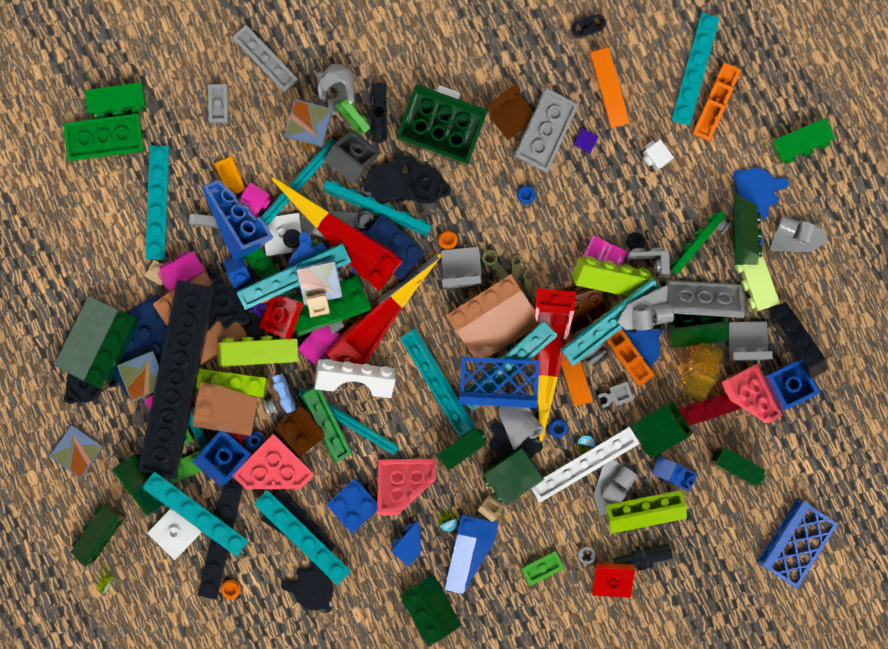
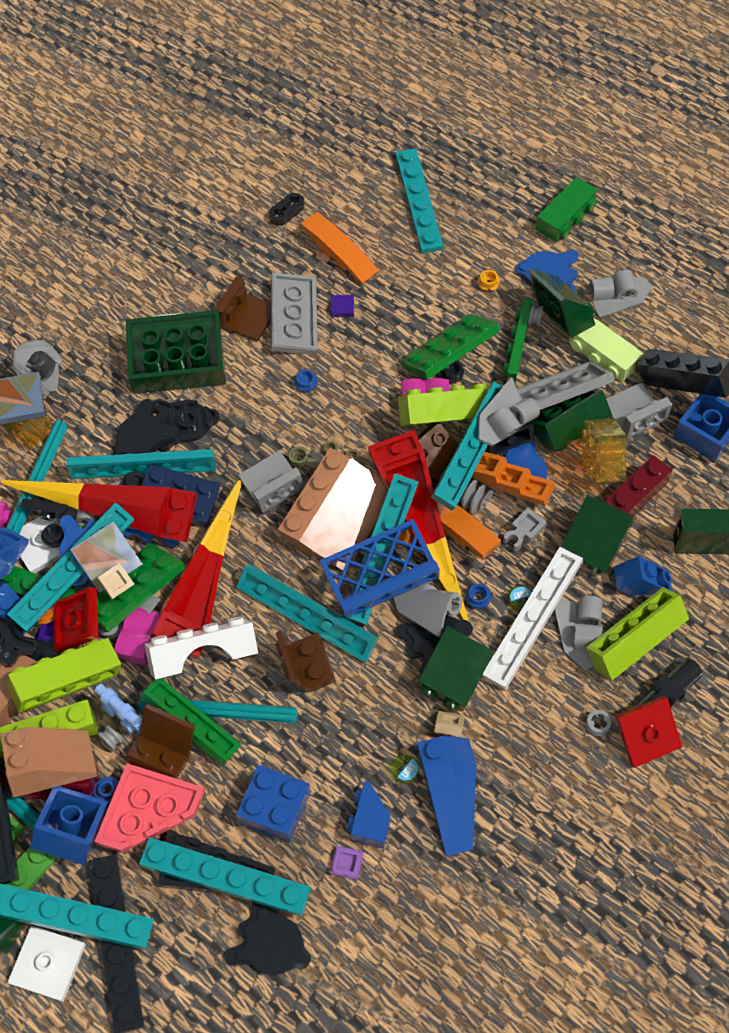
camera: 20 degrees left, 25 degrees down
(230, 589) = (158, 1002): orange plate -> none
(296, 218) = (47, 510): none -> black plate
(352, 156) = (86, 428): dark grey slope -> none
(355, 119) = (69, 385): bright green plate -> none
(378, 100) = (98, 373): black piece -> none
(381, 563) = (346, 863): none -> medium lavender tile
(402, 482) = (322, 744): coral plate -> none
(419, 419) = (305, 661): none -> reddish brown bracket
(430, 610) = (440, 891): dark green slope -> none
(447, 240) = (240, 461): orange plate -> none
(462, 448) = (375, 666): dark green brick -> none
(542, 568) = (554, 764): bright green plate -> none
(644, 222) = (449, 346): none -> green plate
(657, 155) = (426, 283): white brick -> none
(661, 265) = (483, 366): light grey bracket -> none
(706, 170) = (488, 275): none -> light orange plate
(716, 101) = (458, 215): orange slope -> none
(752, 393) = (674, 451): coral plate -> none

